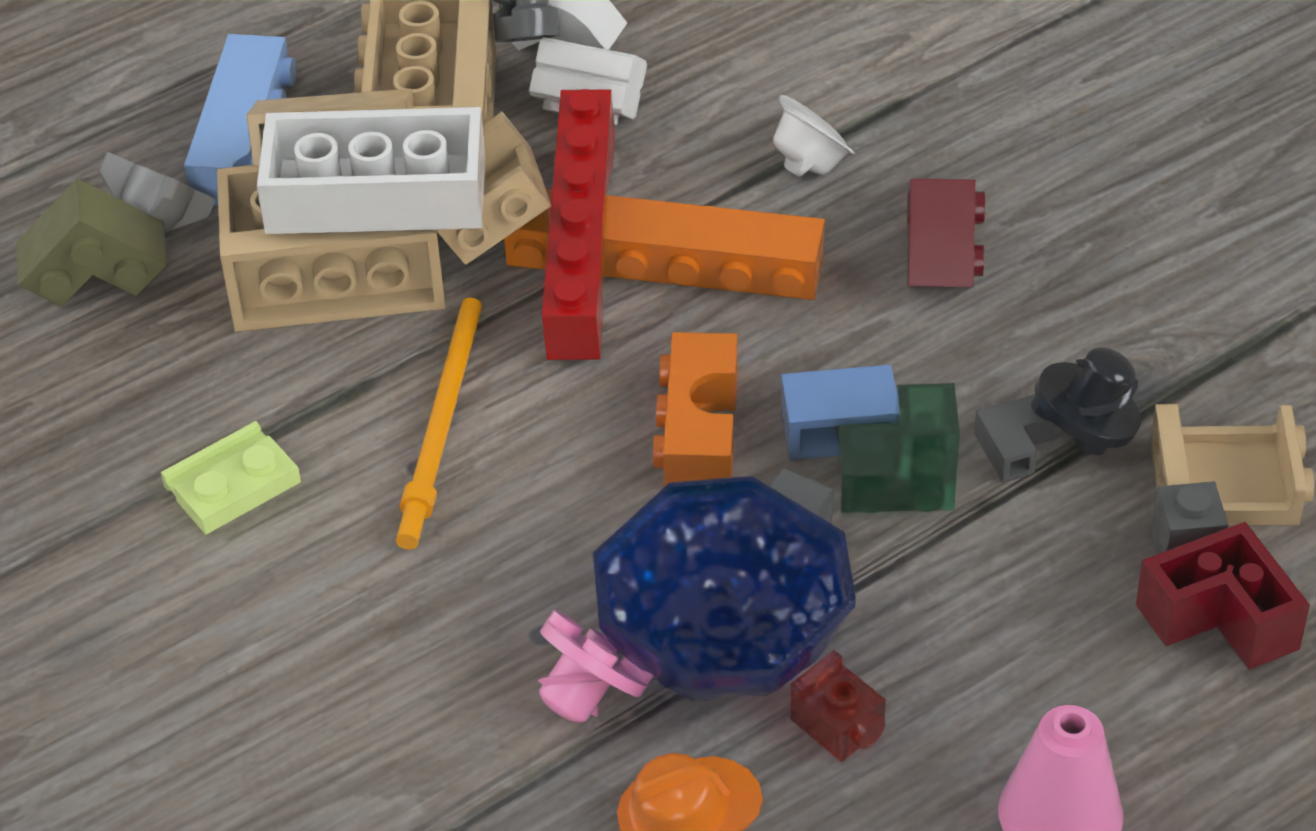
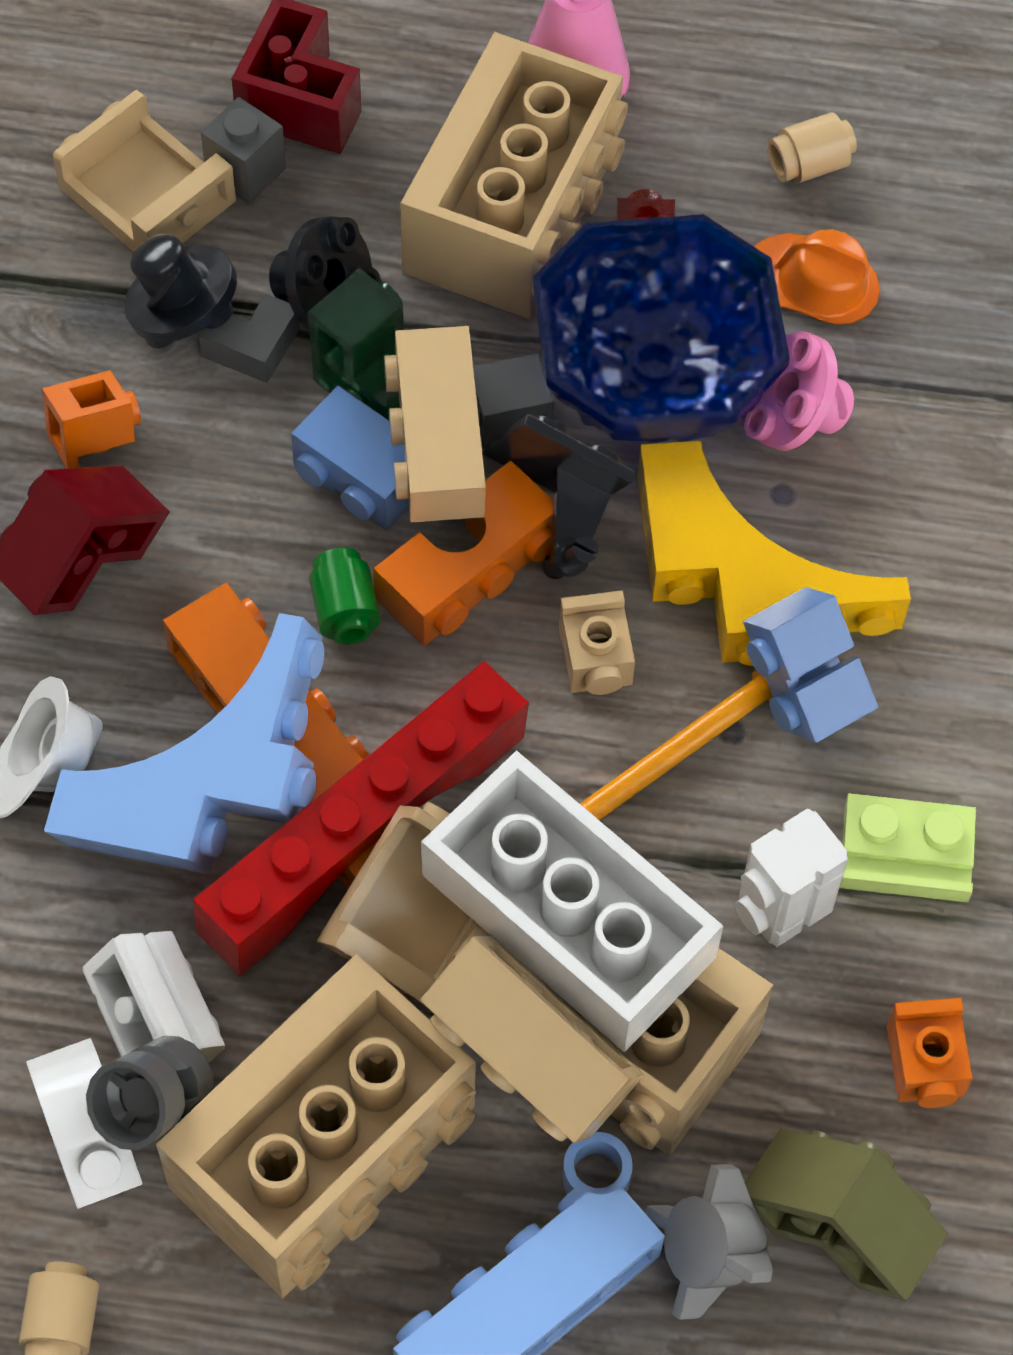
camera: 140 degrees left, 15 degrees up
(104, 361) = (923, 1026): none -> orange brick
(278, 365) = (791, 878): none -> white brick
(389, 484) = (798, 653): none -> medium blue piece
(488, 533) = (708, 550): none -> yellow arch
(555, 427) = (596, 642): none -> tan brick
(684, 157) = (238, 763): none -> light blue arch
(687, 446) = (576, 473): none -> black plate
(759, 333) = (344, 596): none -> green brick
(791, 409) = (436, 424): none -> tan brick
(970, 636) = (511, 173): none -> tan brick
(1008, 479) = (317, 262): none -> black plate
(1031, 311) = (89, 416): none -> orange brick

